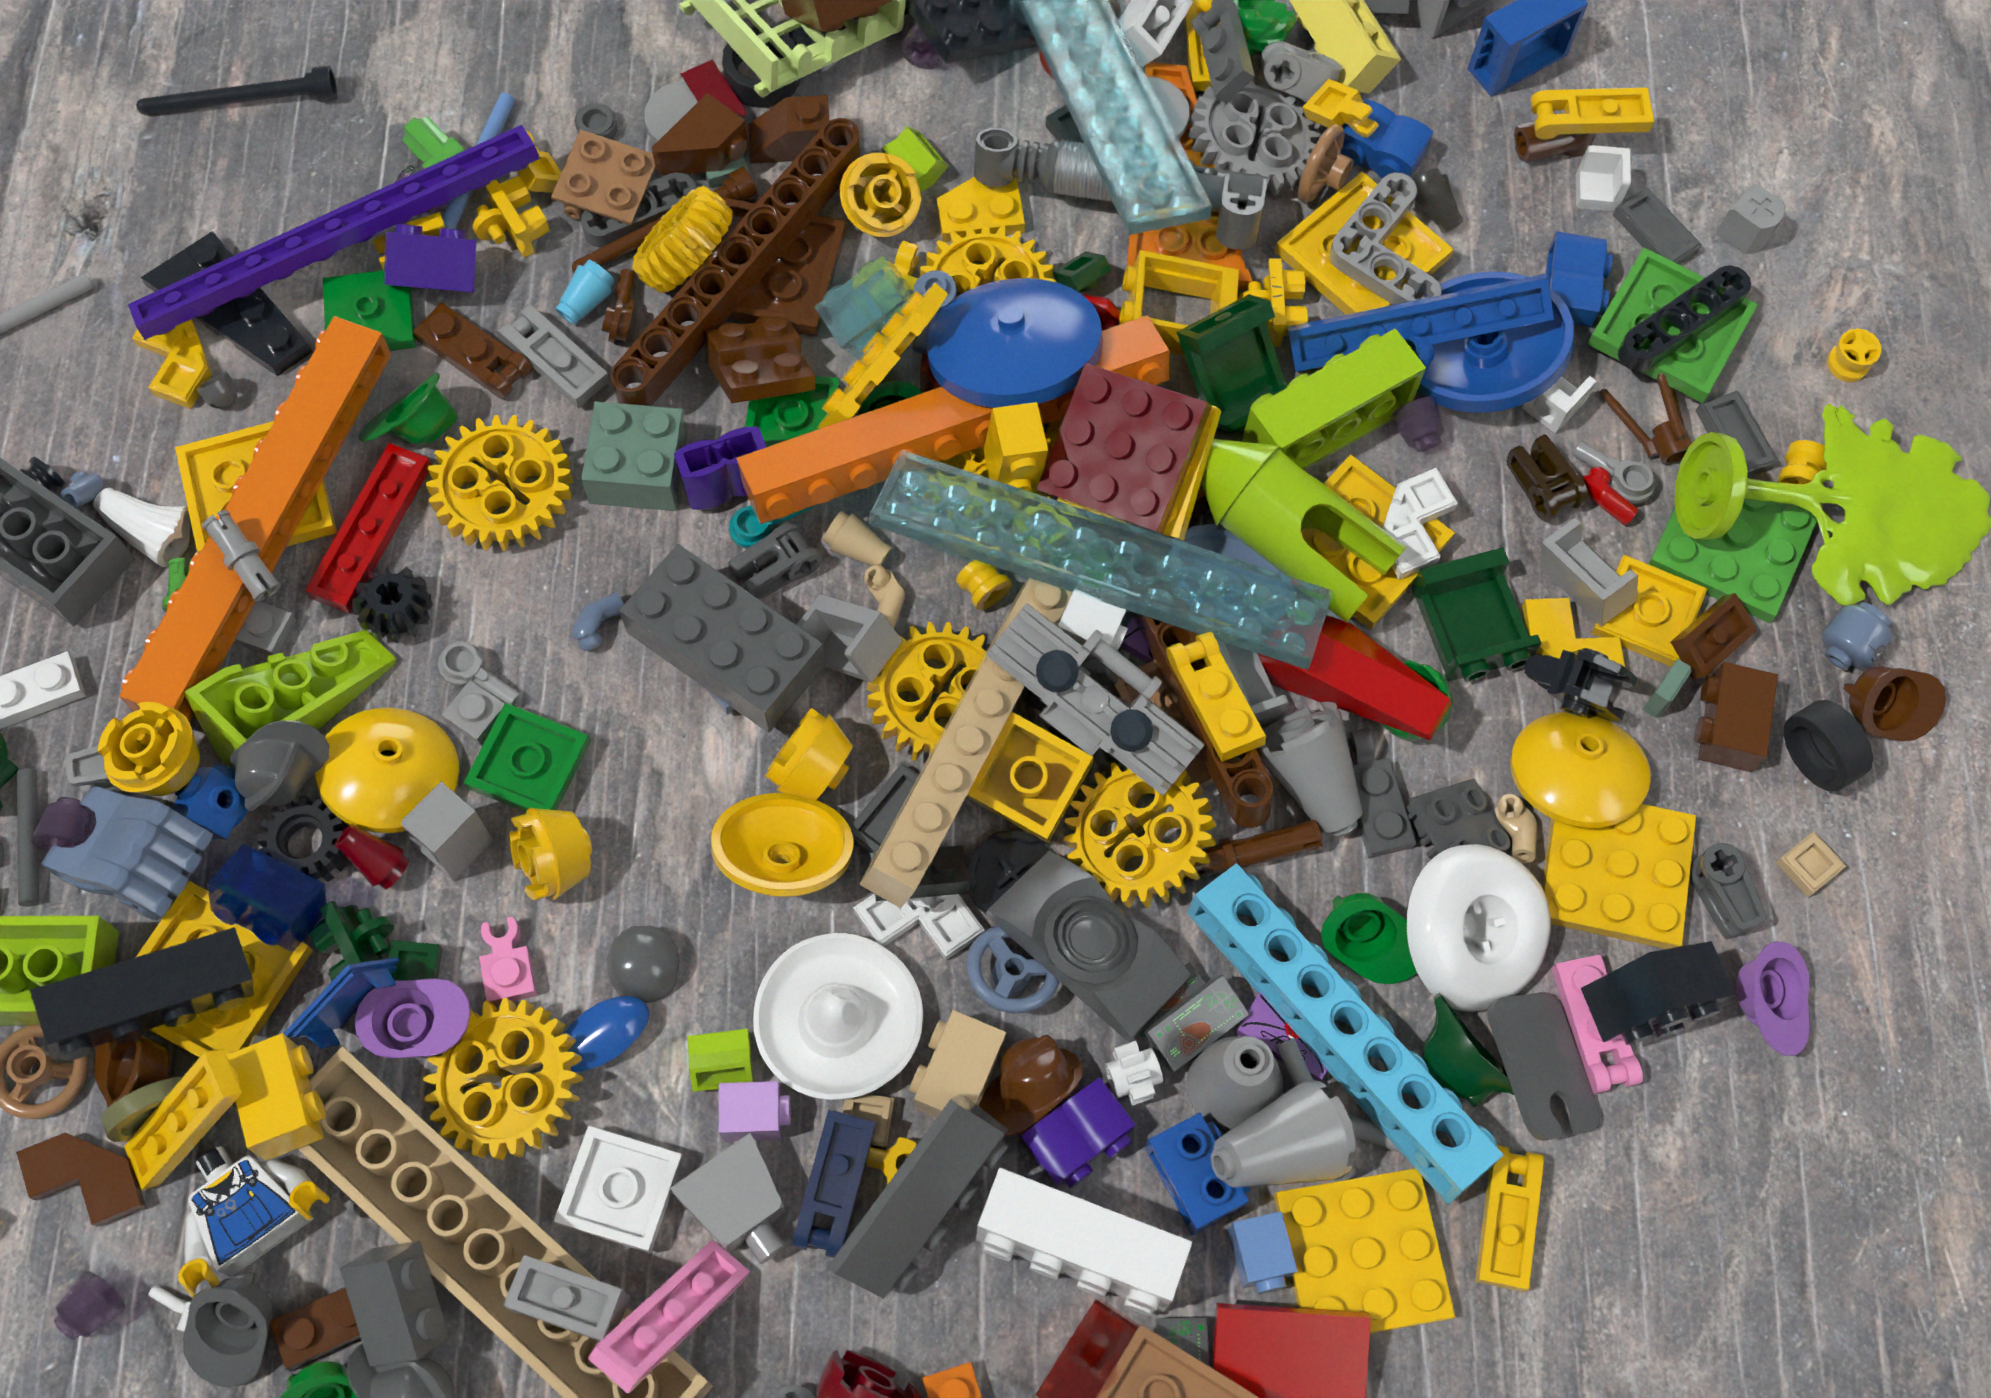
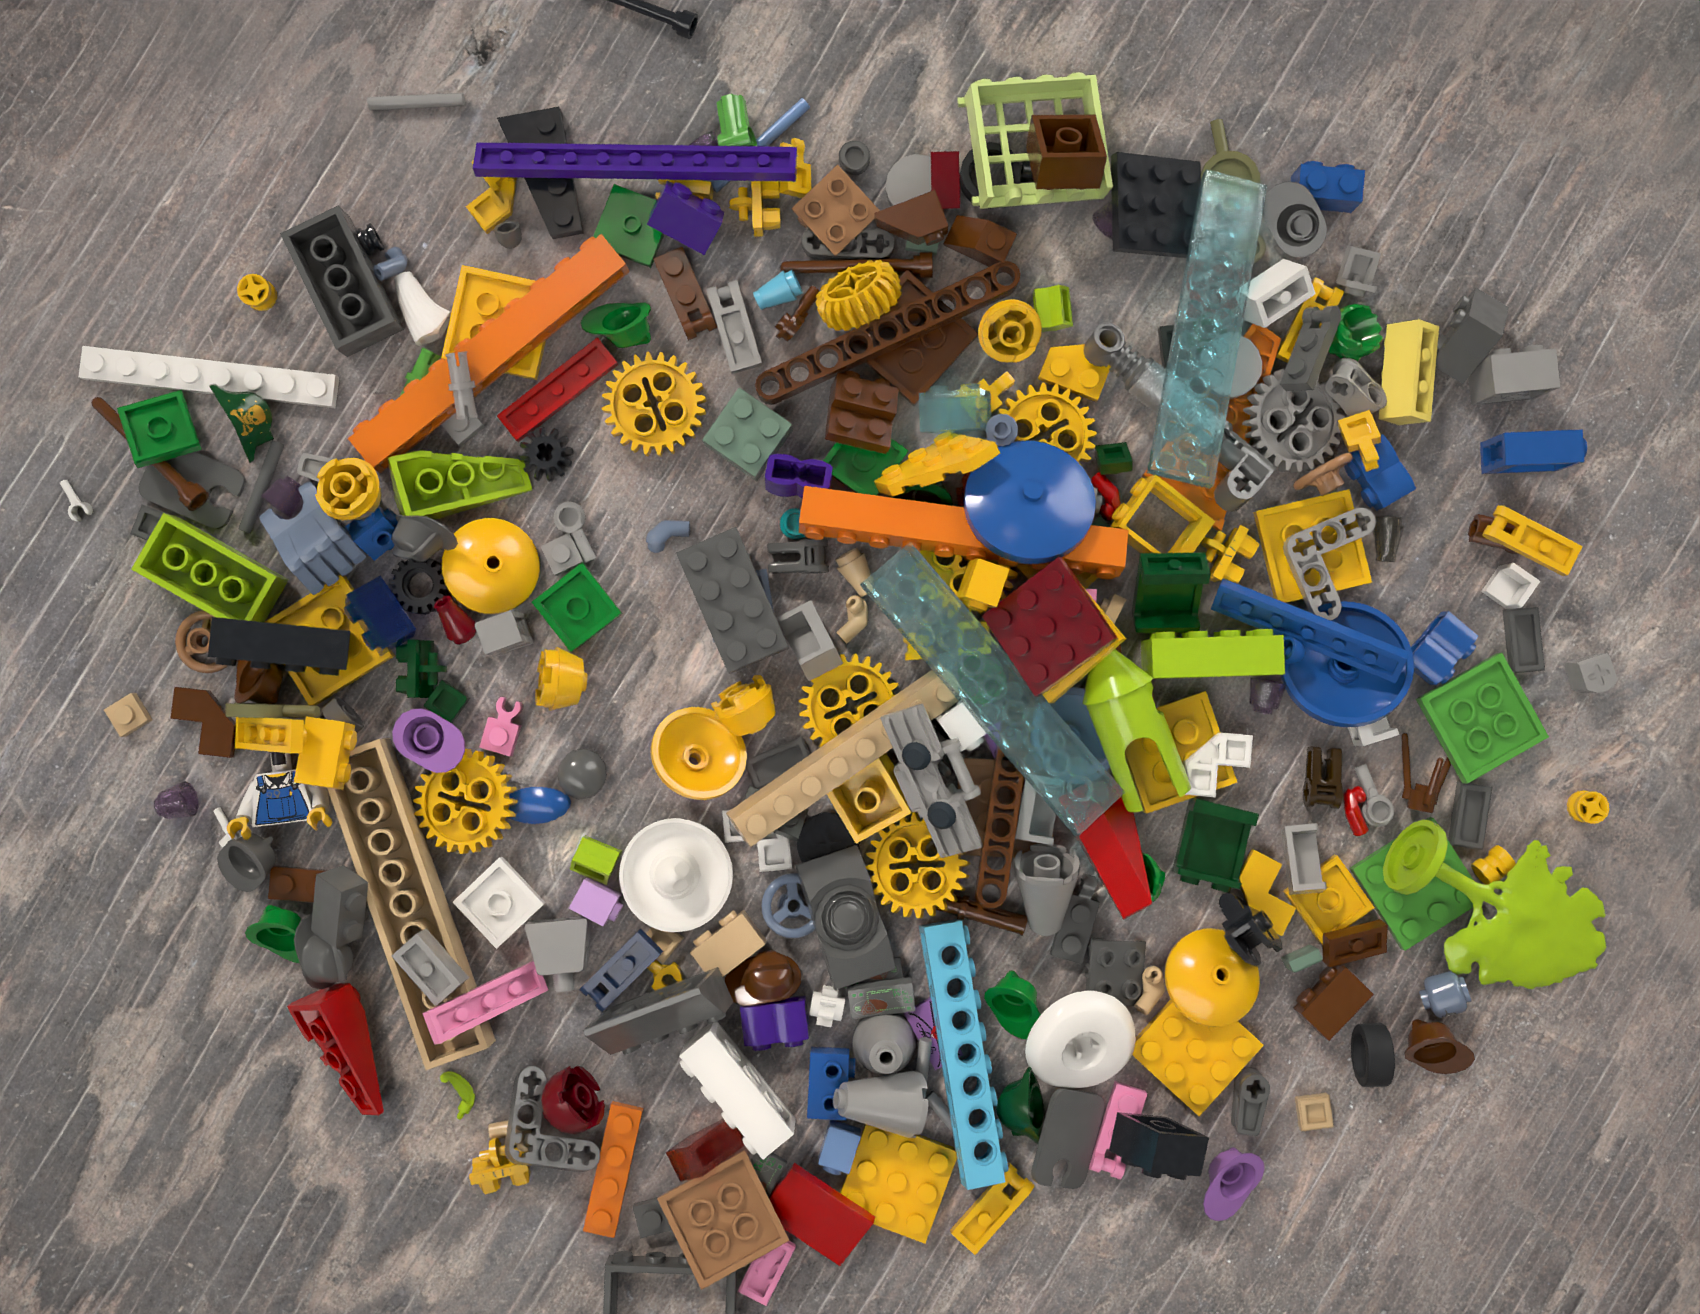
camera: 30 degrees right, 20 degrees up
(341, 1001) = (374, 719): blue piece -> none
(1216, 697) = (1007, 822): yellow plate -> none
(1686, 319) = (1489, 723): black beam -> none

